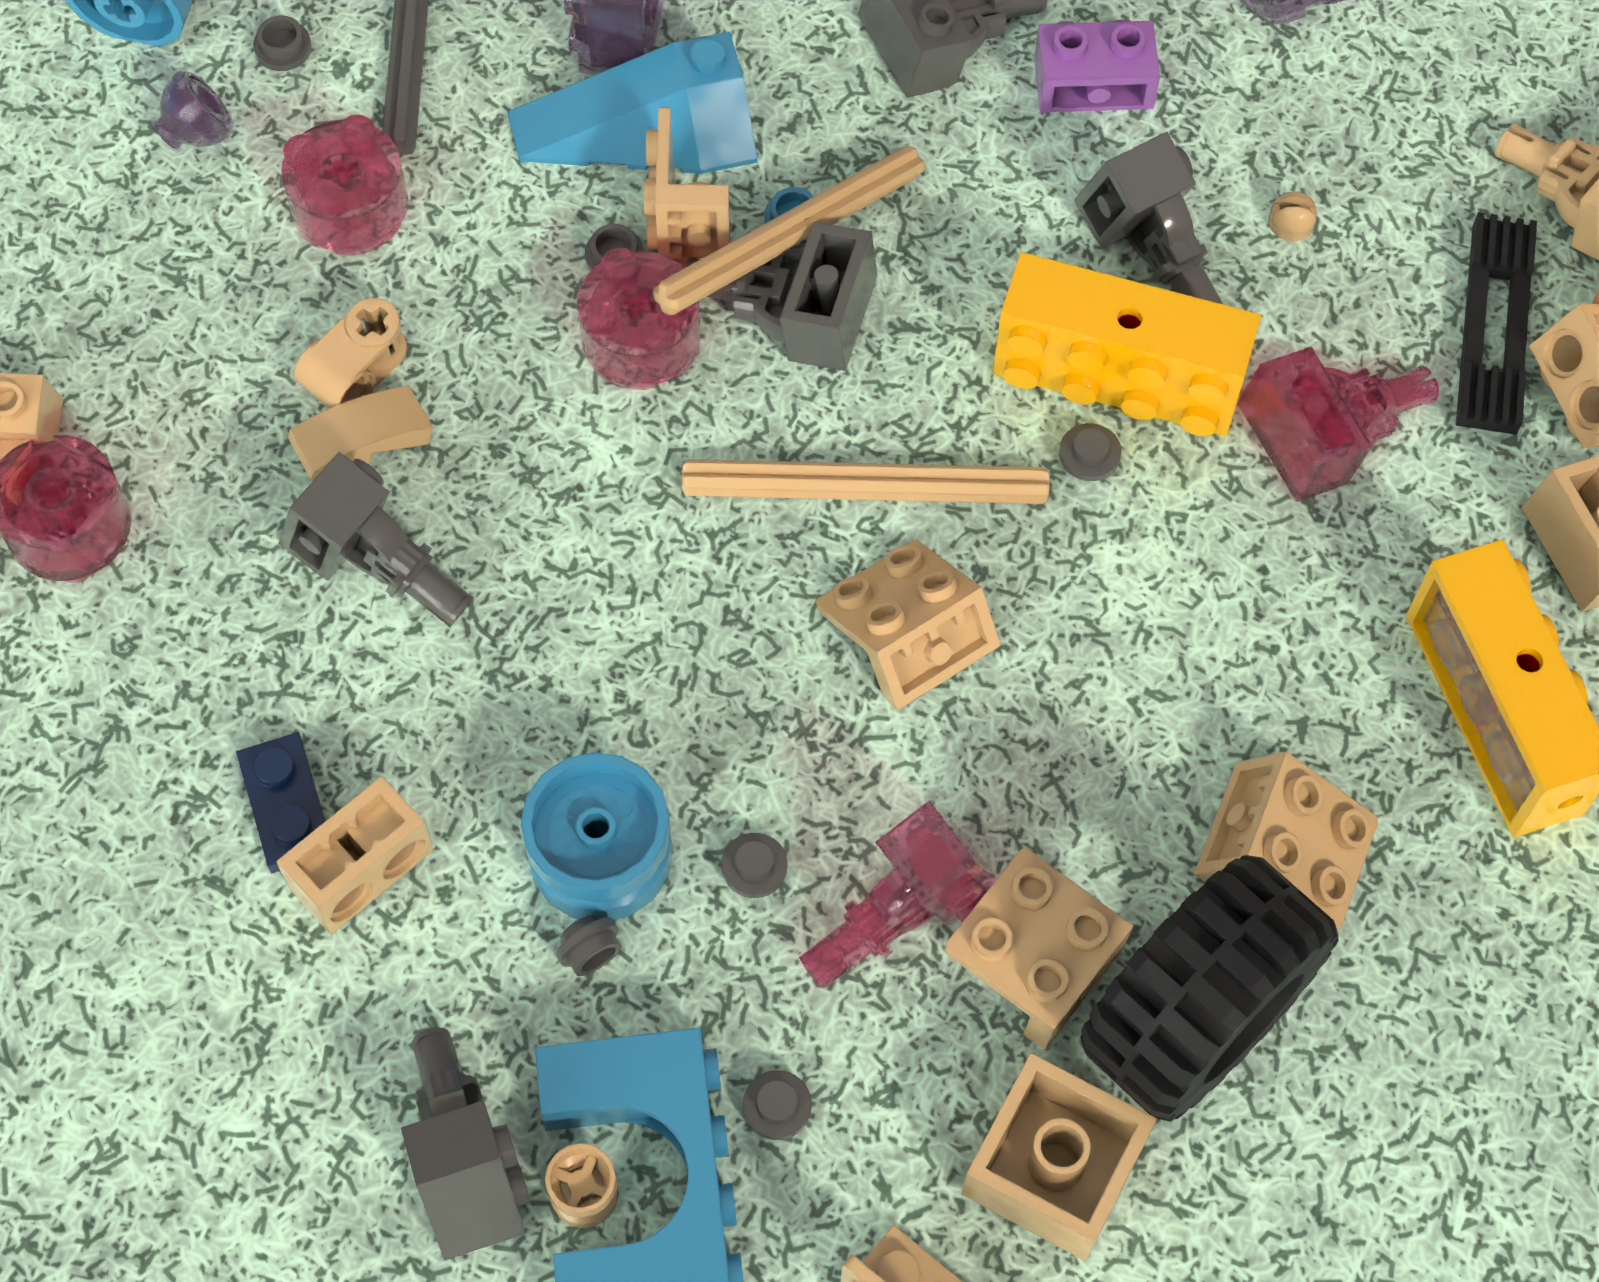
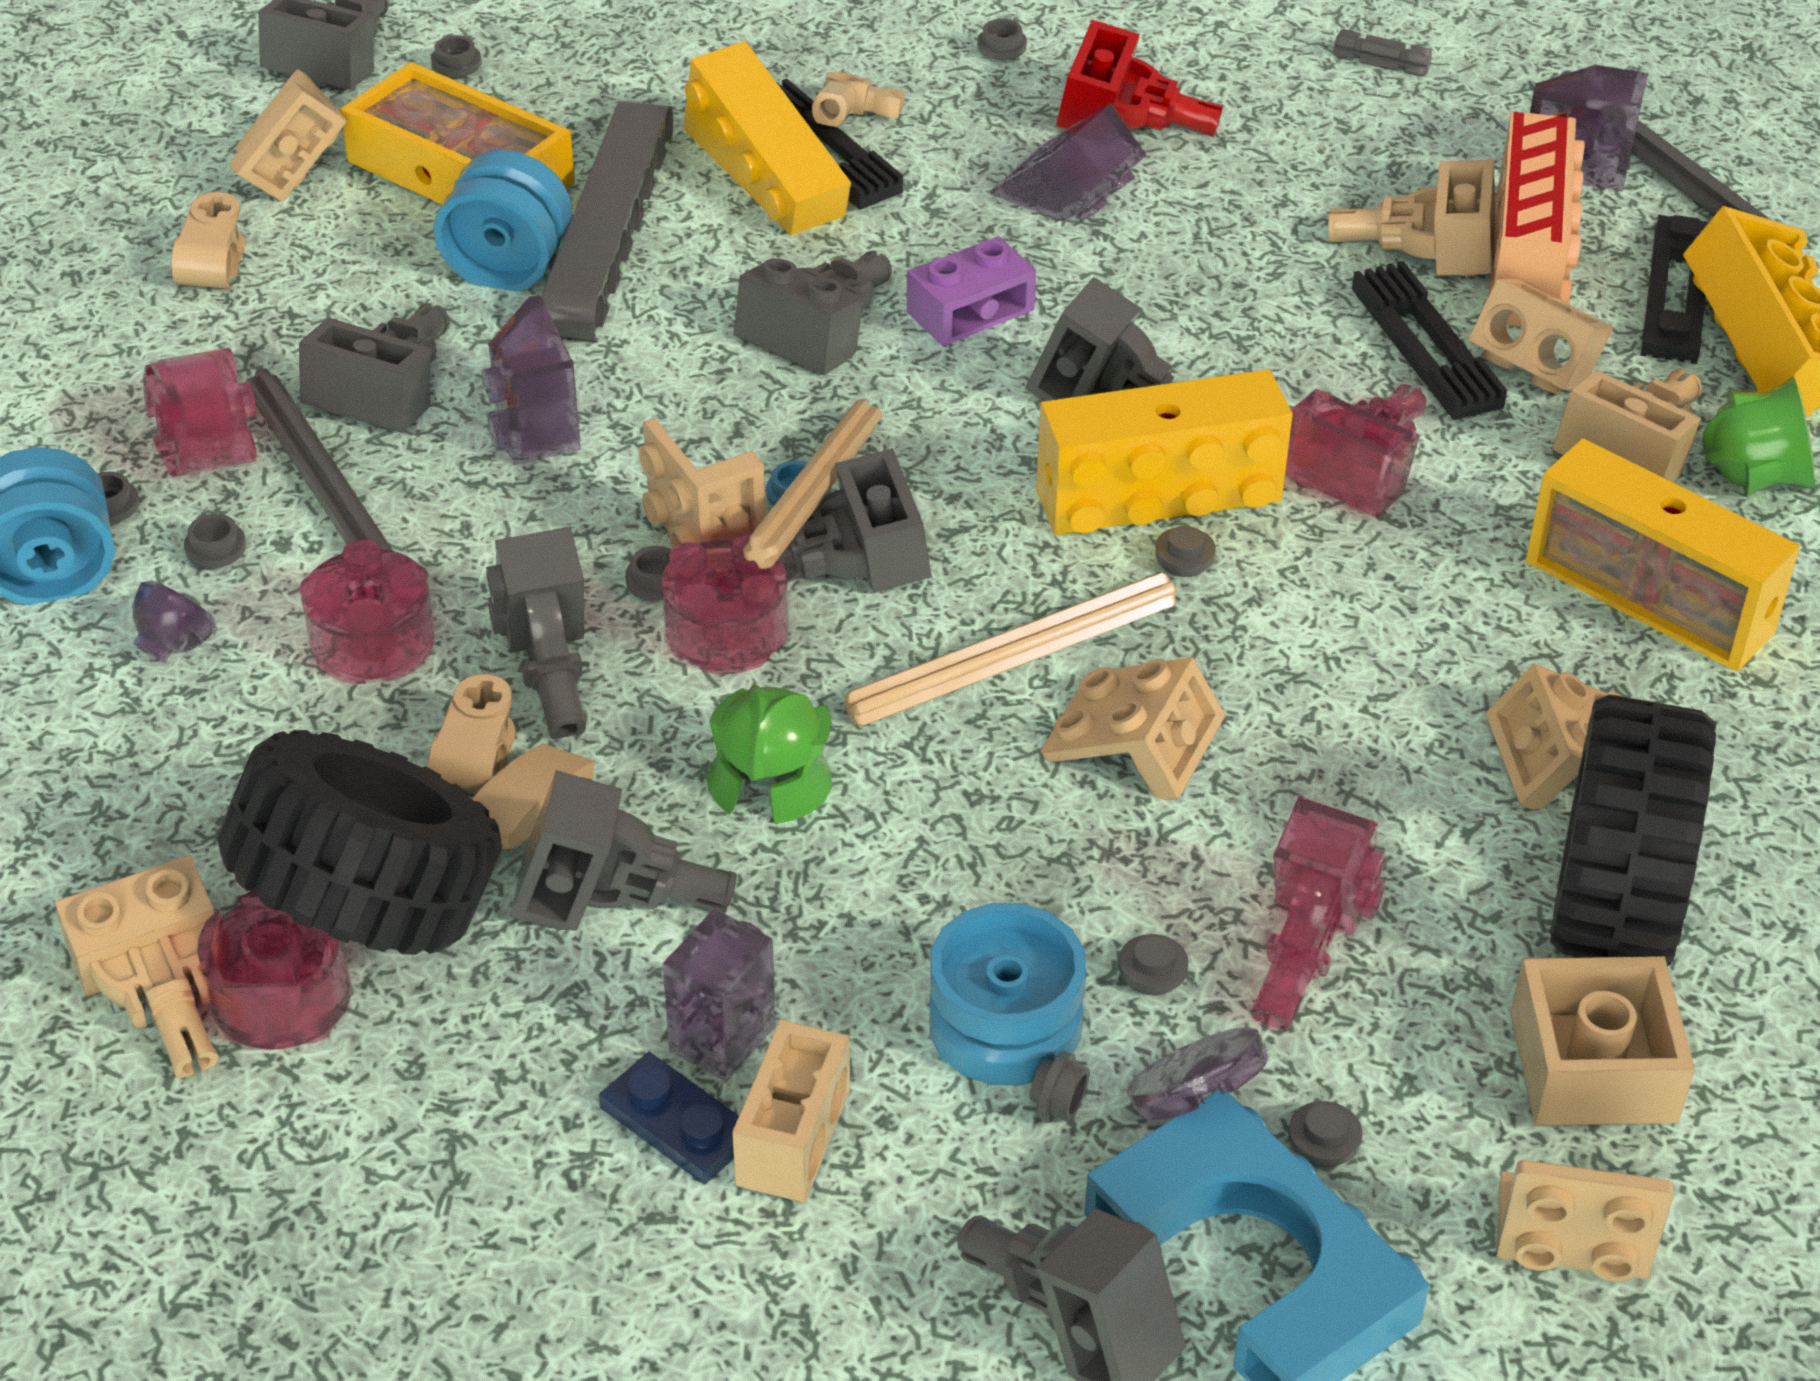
camera: 30 degrees left, 20 degrees down
(125, 478) = (358, 842): none -> black tyre
(367, 718) = (720, 994): none -> clear purple brick
(480, 243) = (540, 608): none -> dark grey brick
(578, 483) = (767, 736): none -> bright green helmet
(583, 1172) = (1211, 1274): tan wheel -> none
(610, 112) = (596, 461): dark azure wedge -> none
(696, 998) = (1182, 1077): none -> clear purple tile
(1039, 943) = (1456, 889): tan bracket -> none
(1292, 216) = (1209, 333): tan hinge -> none

